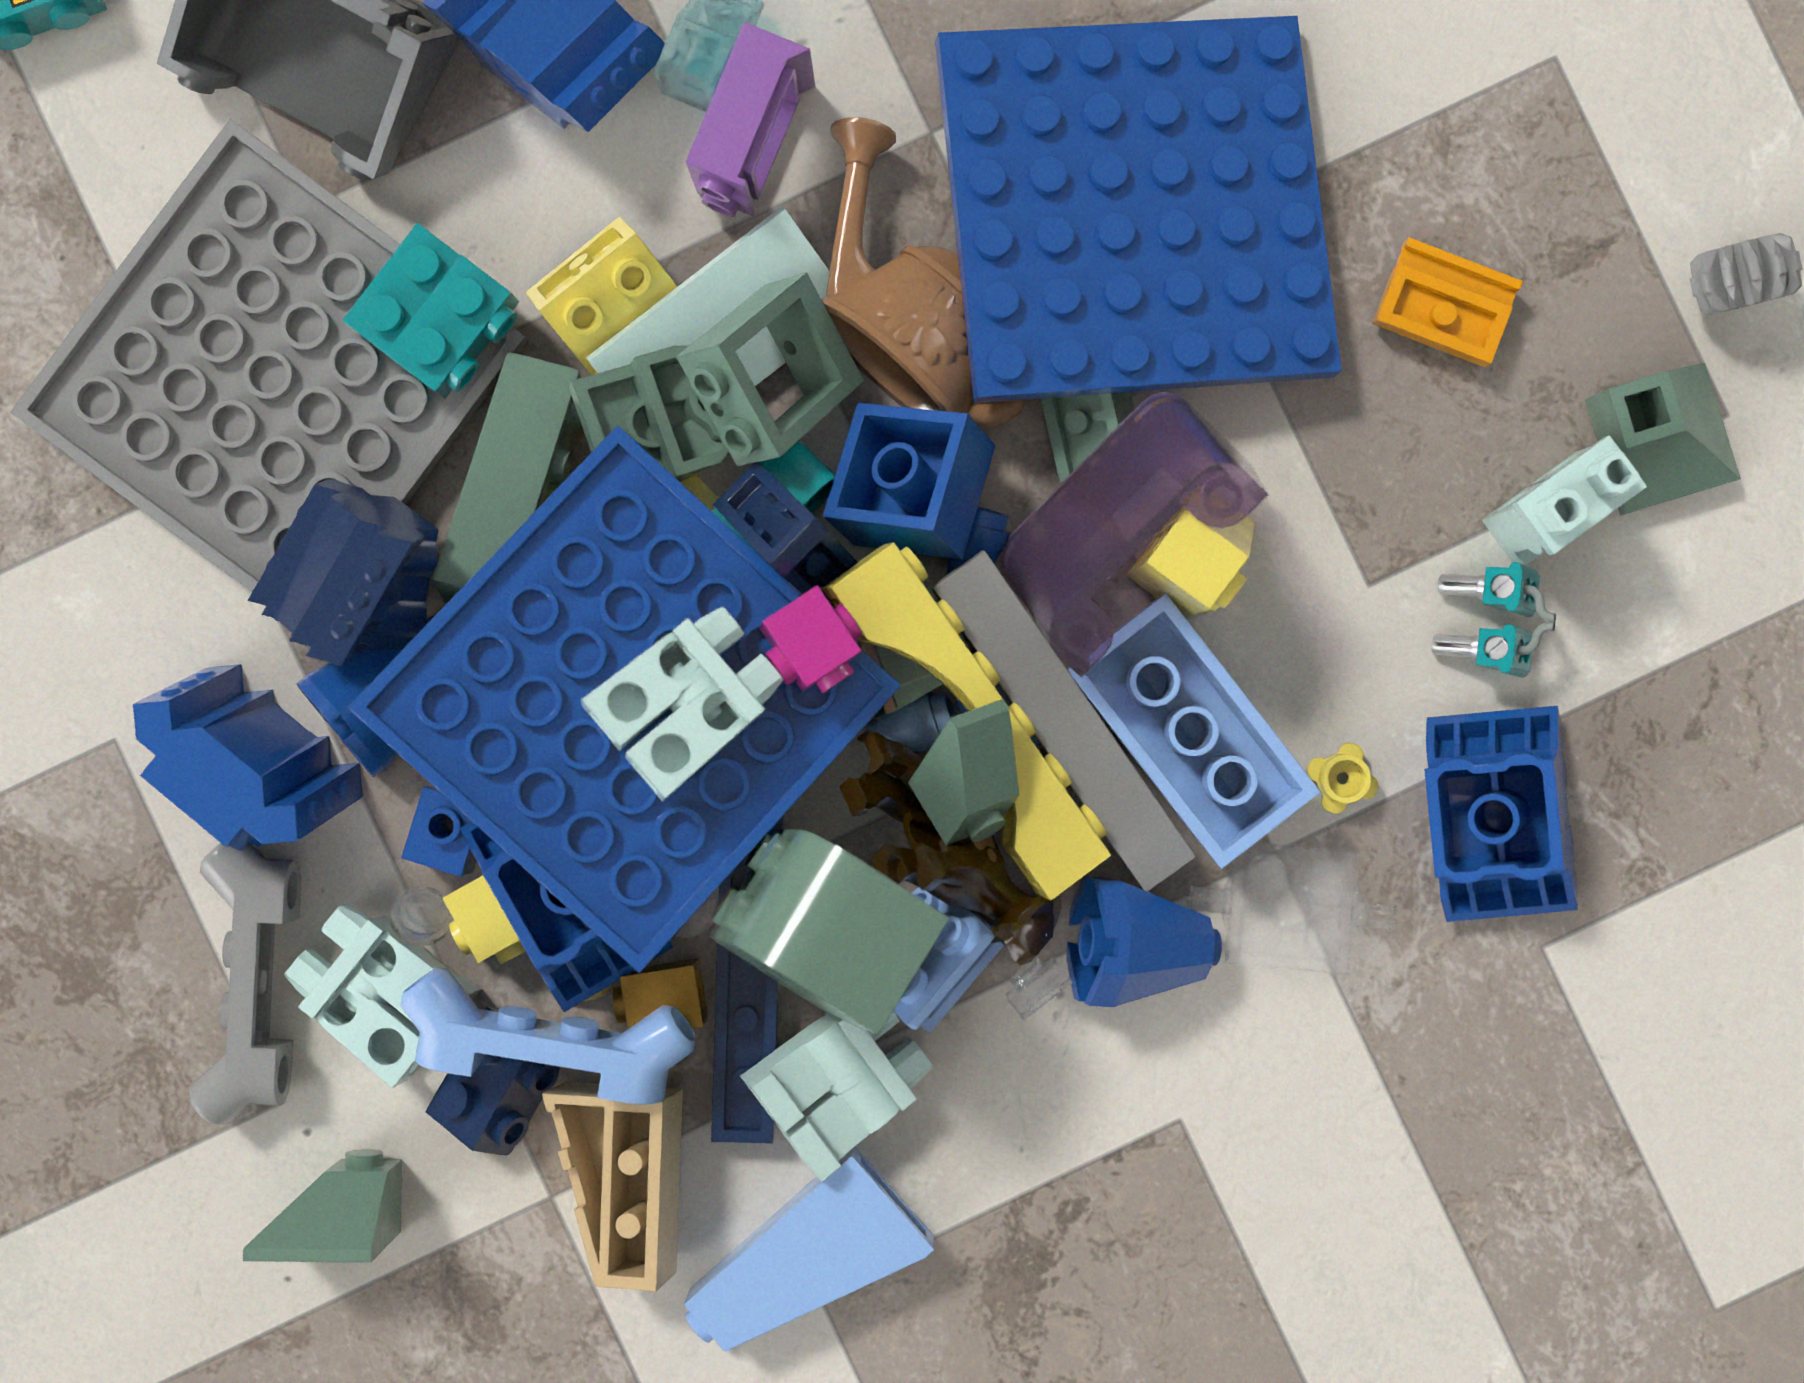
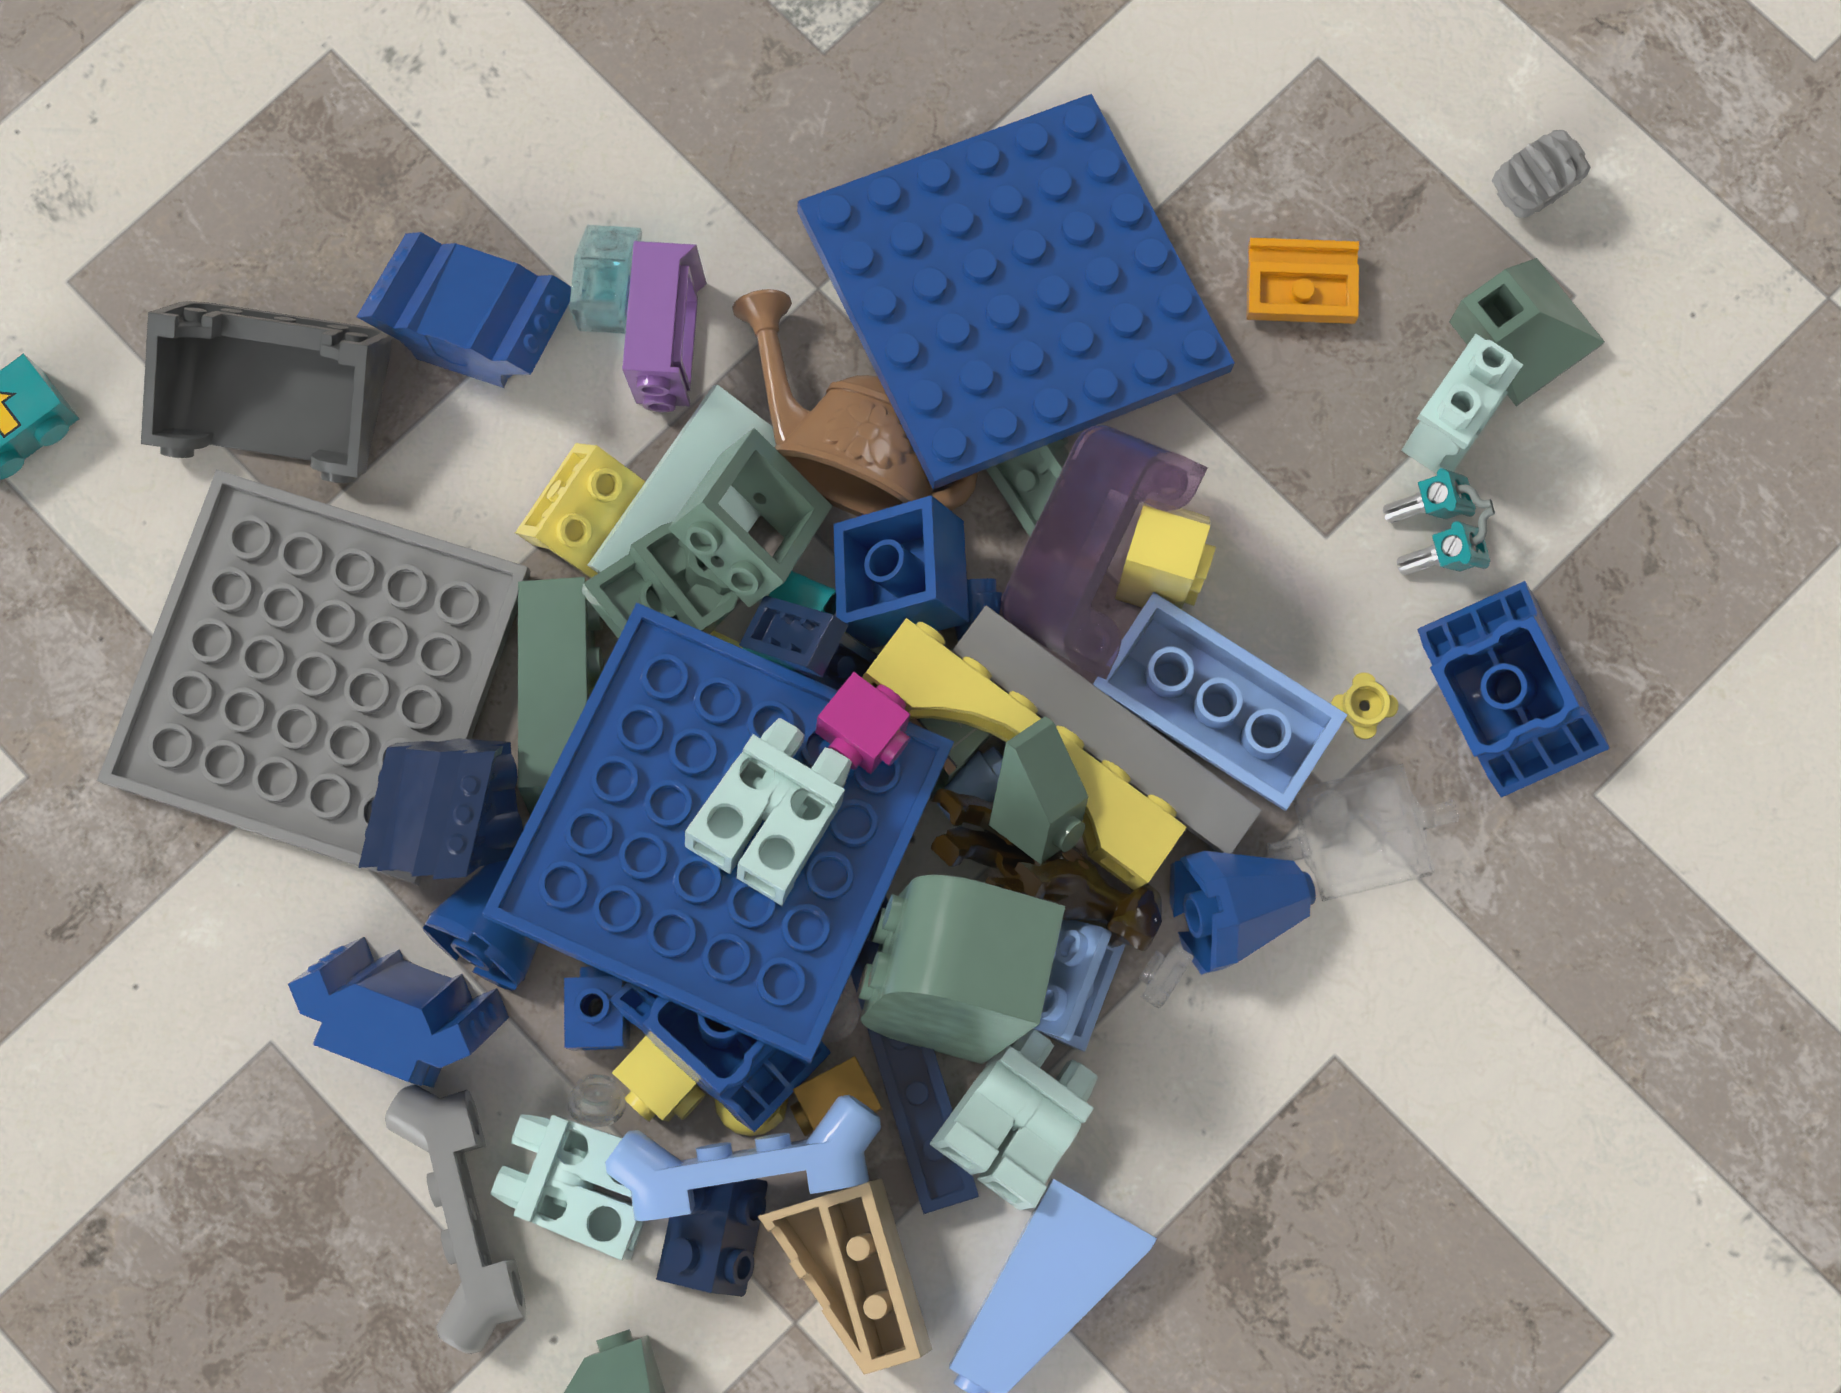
camera: 15 degrees left, 10 degrees down
(433, 312) = (443, 570): teal plate -> none

